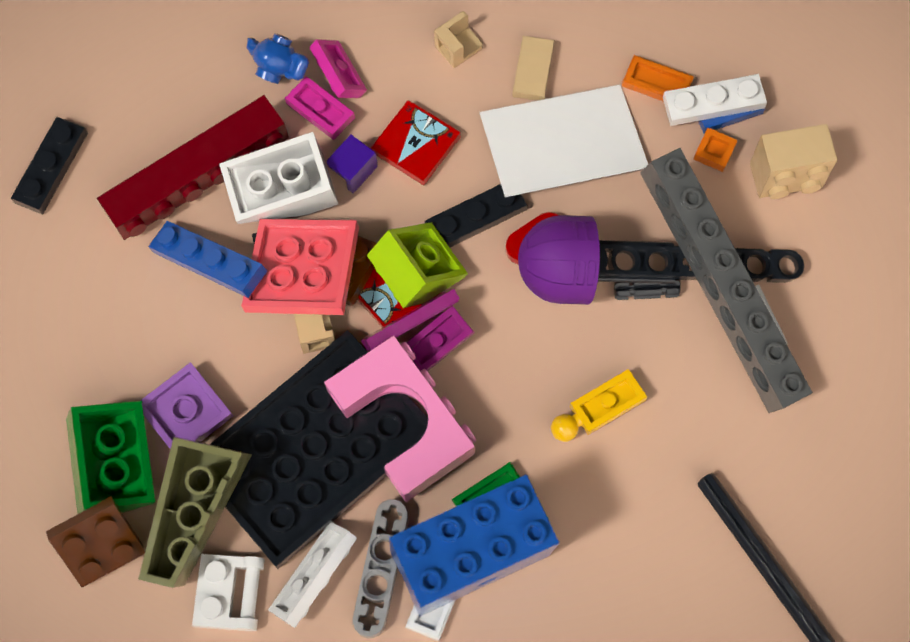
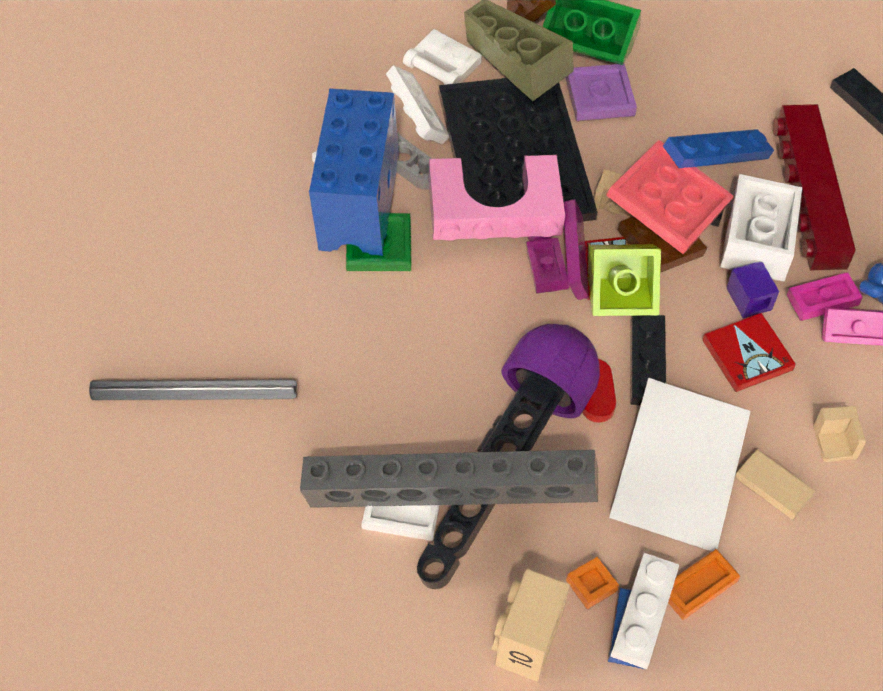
camera: 115 degrees right, 15 degrees down
(599, 406) = (410, 347): yellow plate -> none

